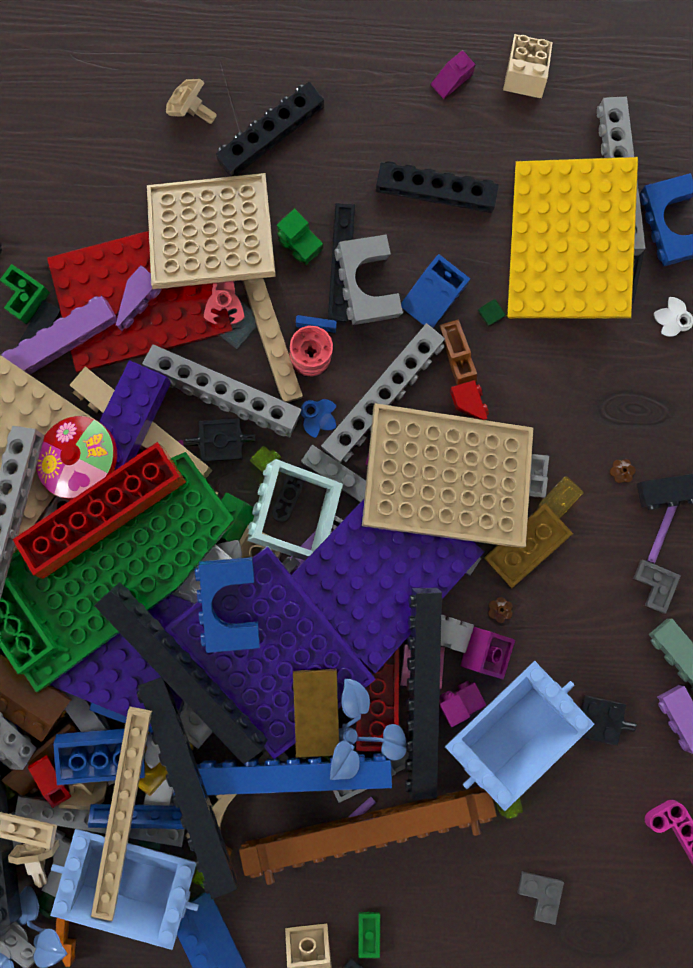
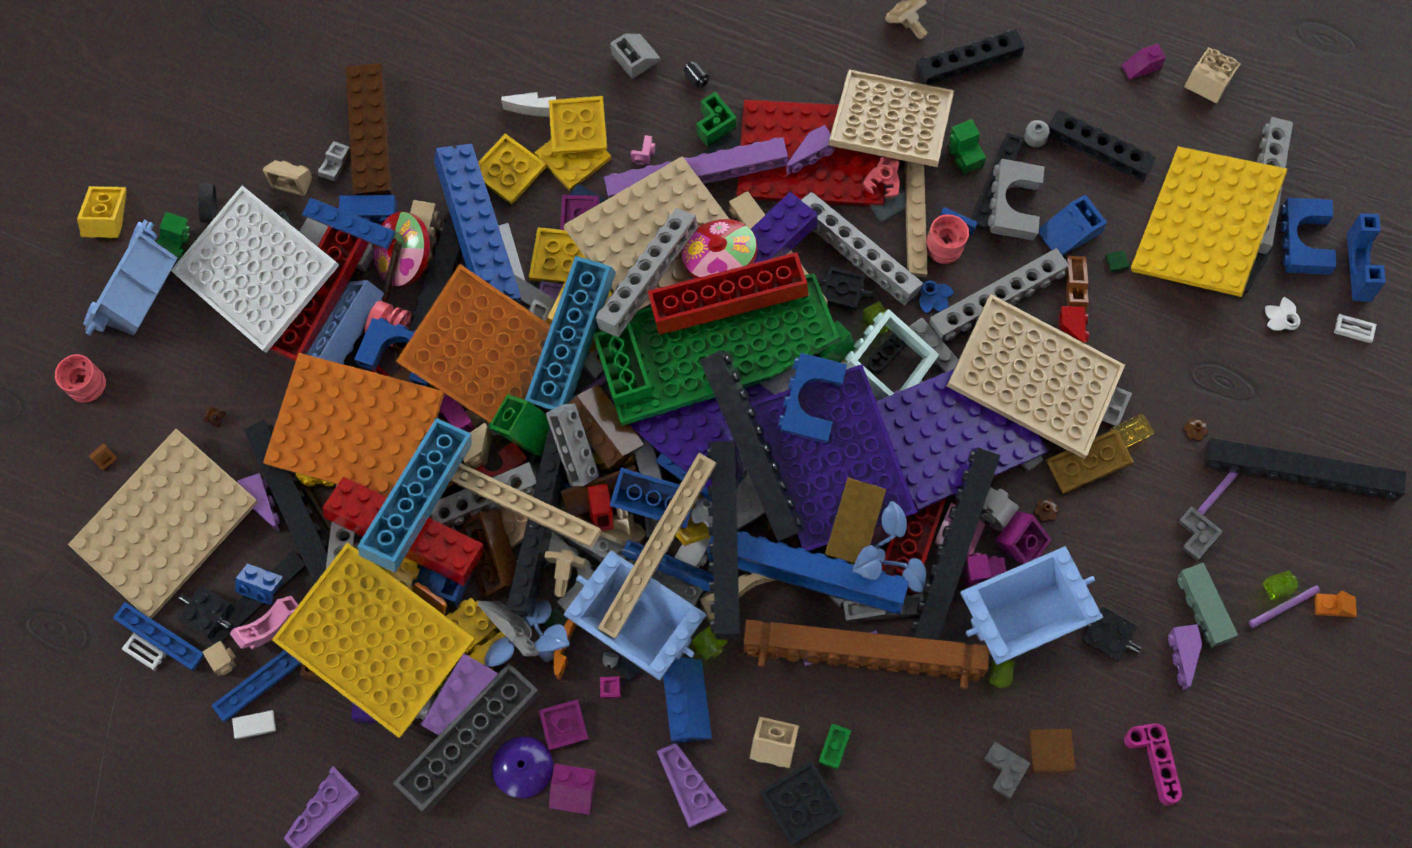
camera: 25 degrees right, 15 degrees down
(127, 952) = (610, 687): none -> dark pink tile
(367, 196) = (1036, 133): none -> light grey head
(580, 860) = (1052, 750): none -> clear orange tile

